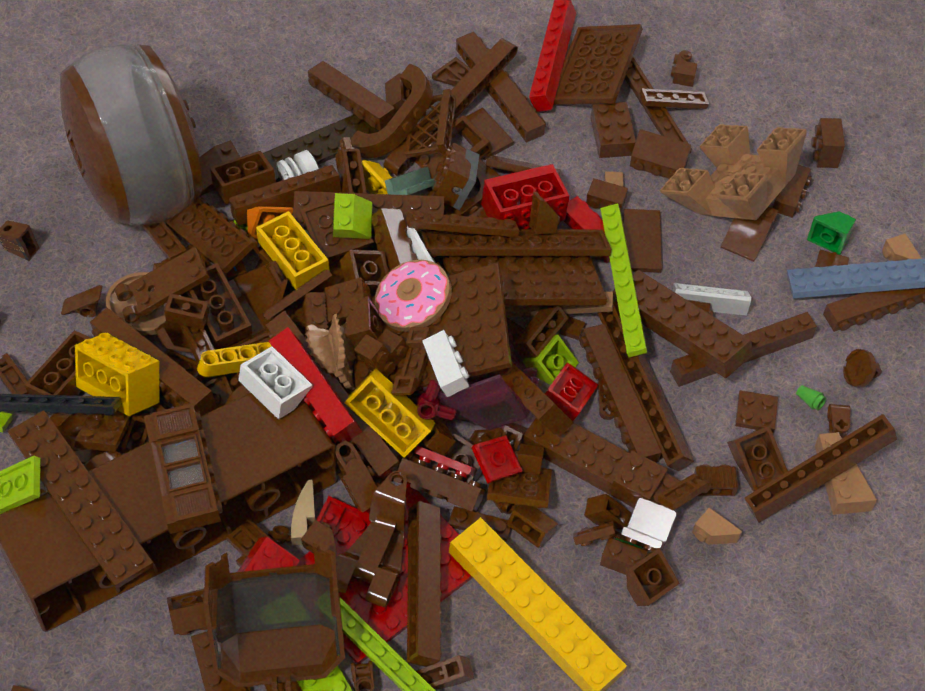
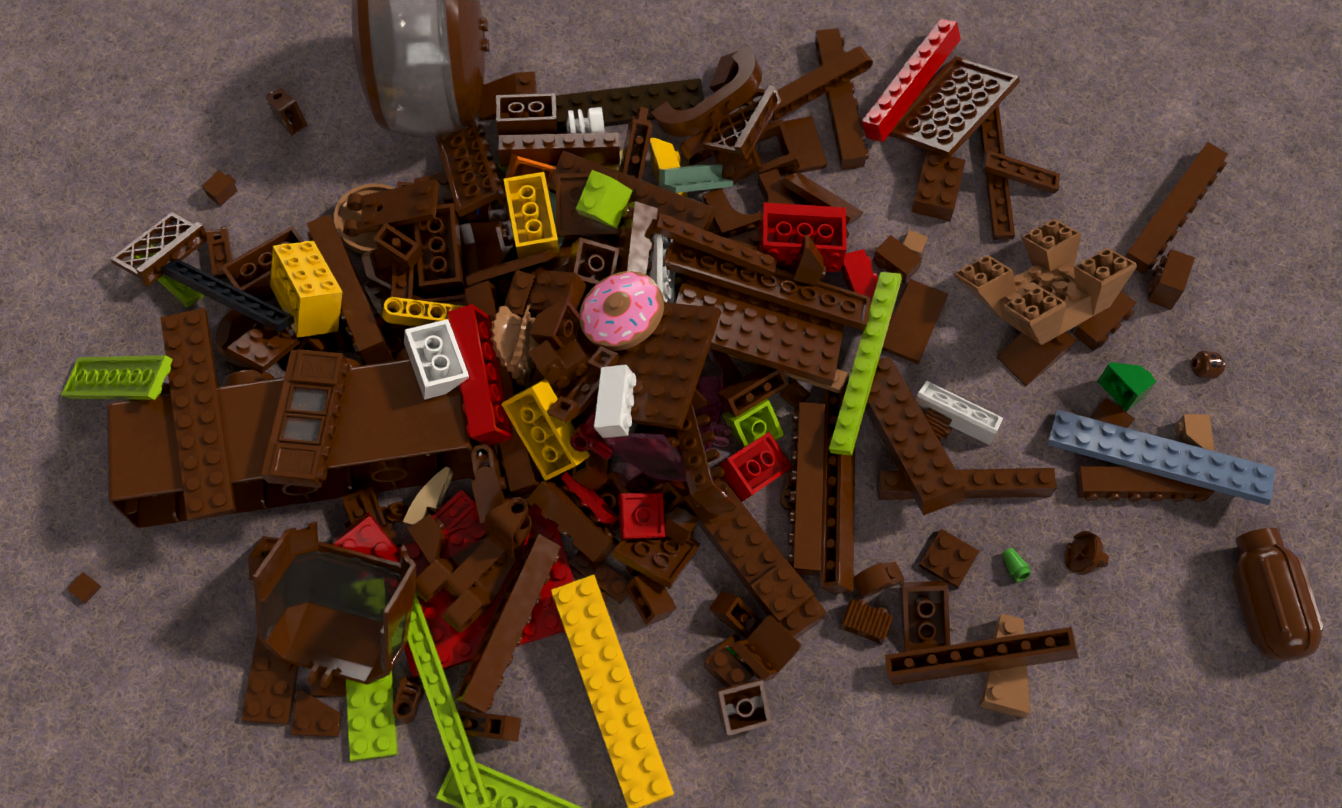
camera: 25 degrees right, 10 degrees up
(83, 303) = (319, 198): reddish brown piece -> none
(164, 239) = (425, 159): reddish brown plate -> none
(351, 95) = (678, 59): reddish brown brick -> none
(451, 72) = (796, 65): reddish brown wing -> none
(456, 175) = (739, 186): reddish brown piece -> none
(603, 531) = (708, 633): reddish brown plate -> none
(659, 154) = (974, 231): reddish brown slope -> none
(683, 491) = (820, 625): reddish brown plate -> none
(685, 70) = (1049, 142): reddish brown brick -> none
(708, 444) = (877, 578): none -> reddish brown brick
(715, 529) = (840, 675): medium nougat slope -> none
(808, 83) = (1176, 206): none -> reddish brown brick
(839, 419) = (1035, 601): reddish brown piece -> none
(885, 198) = (1208, 364): none -> reddish brown head

